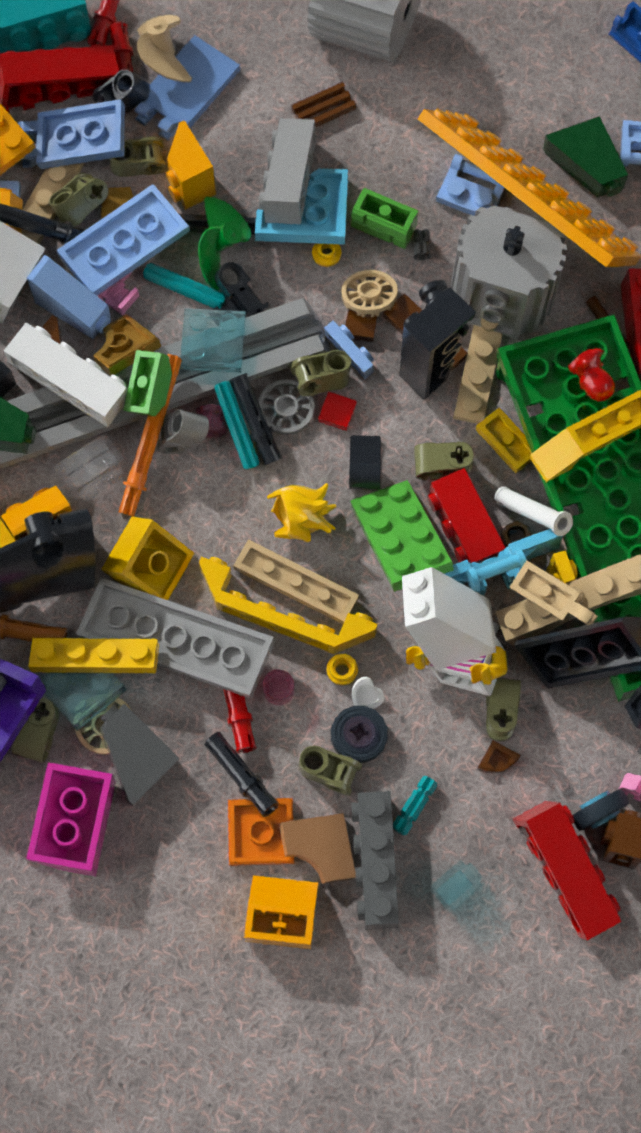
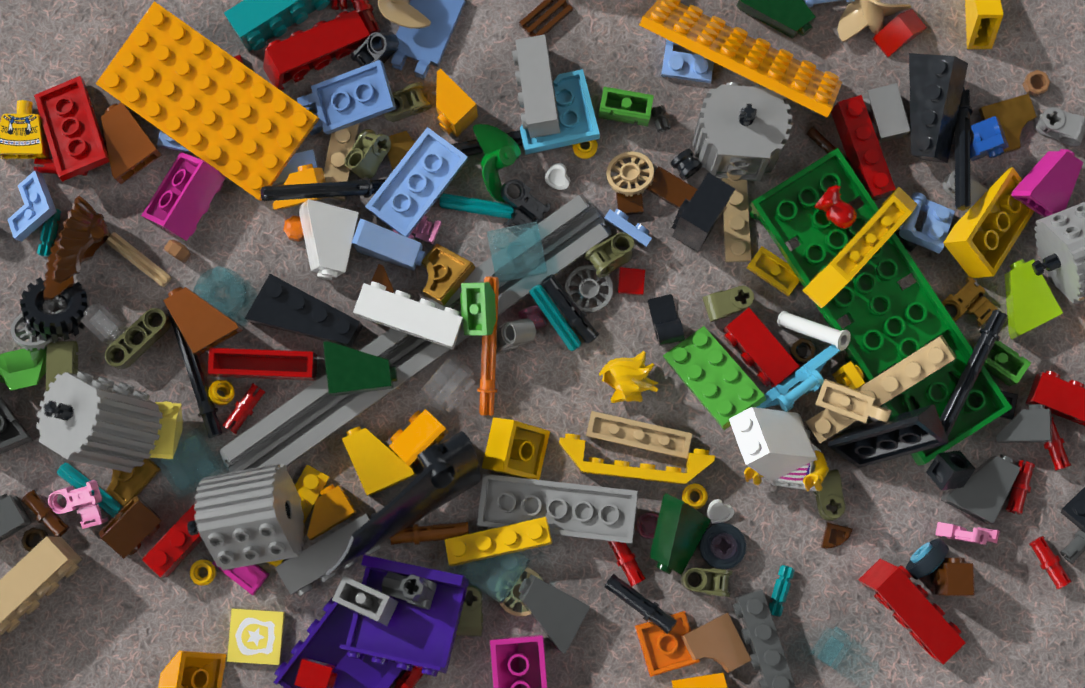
camera: 15 degrees left, 10 degrees up
(285, 277) = (557, 177): none -> white piece
(307, 702) = (677, 534): none -> dark green slope

